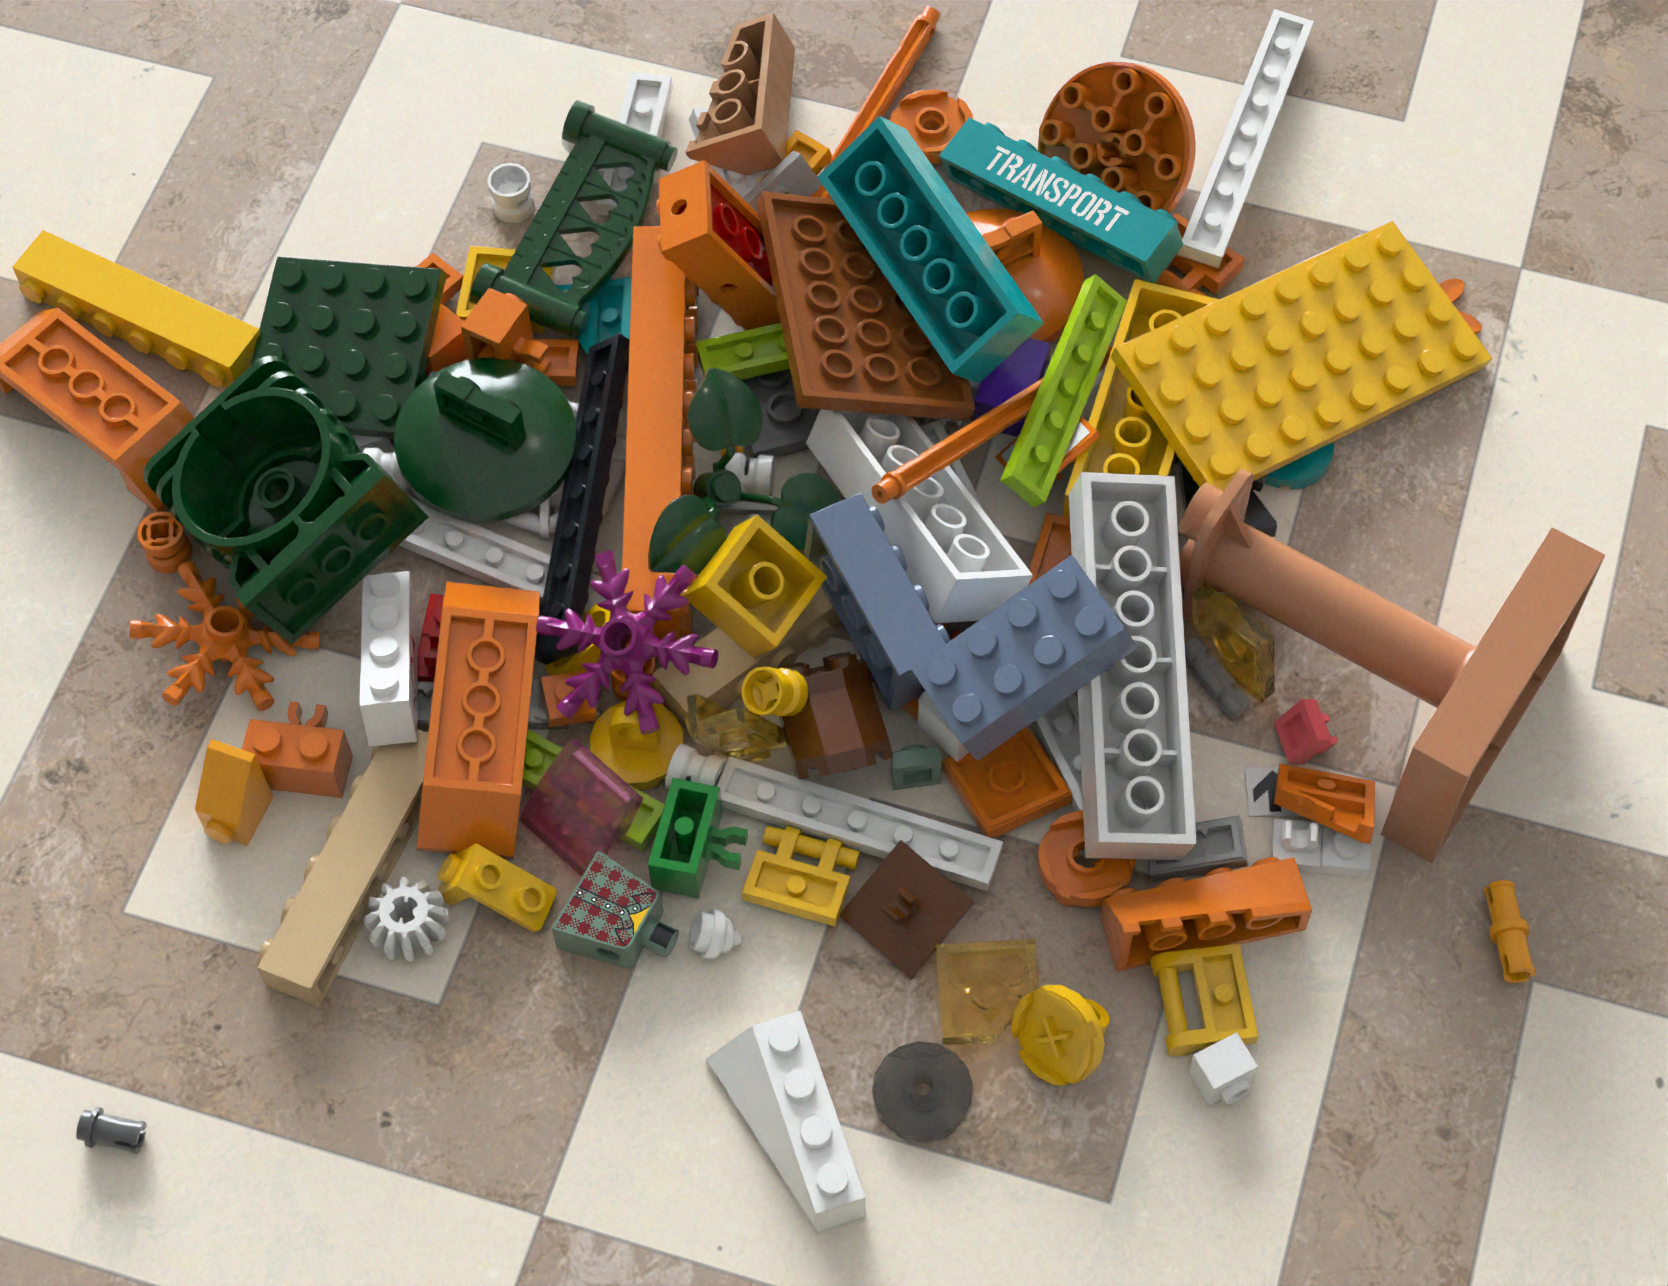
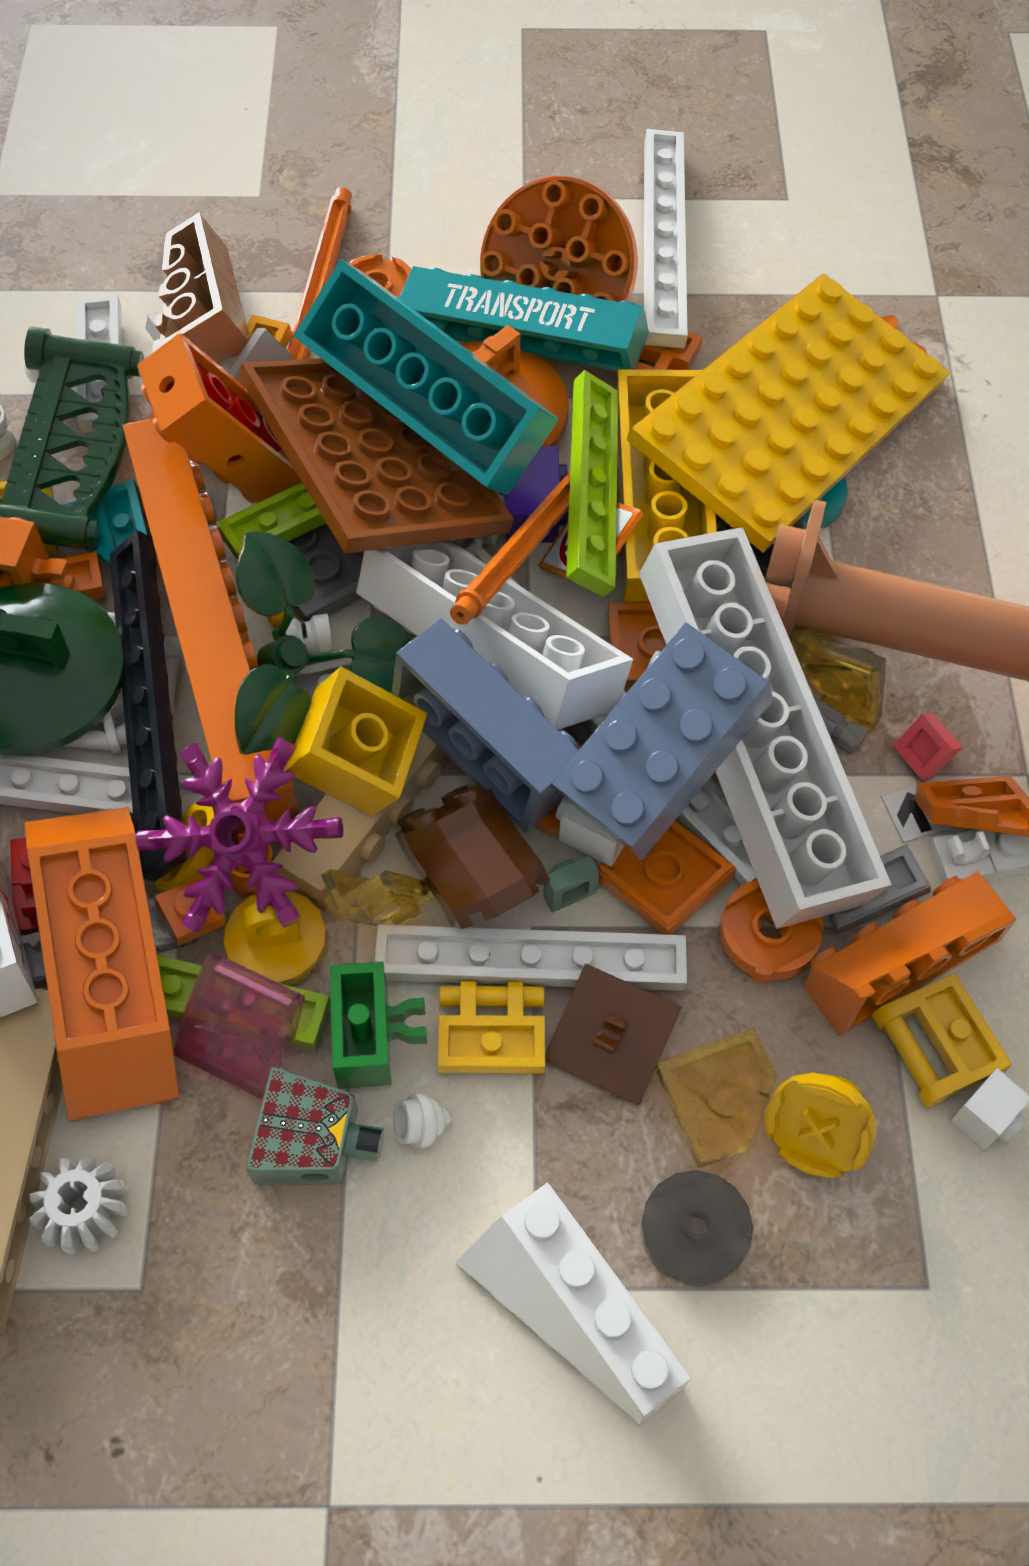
camera: 20 degrees left, 0 degrees up
(497, 885) = (169, 1137): yellow bracket -> none
(691, 766) = (345, 947): white wheel -> none
(774, 691) = (401, 849): yellow wheel -> none

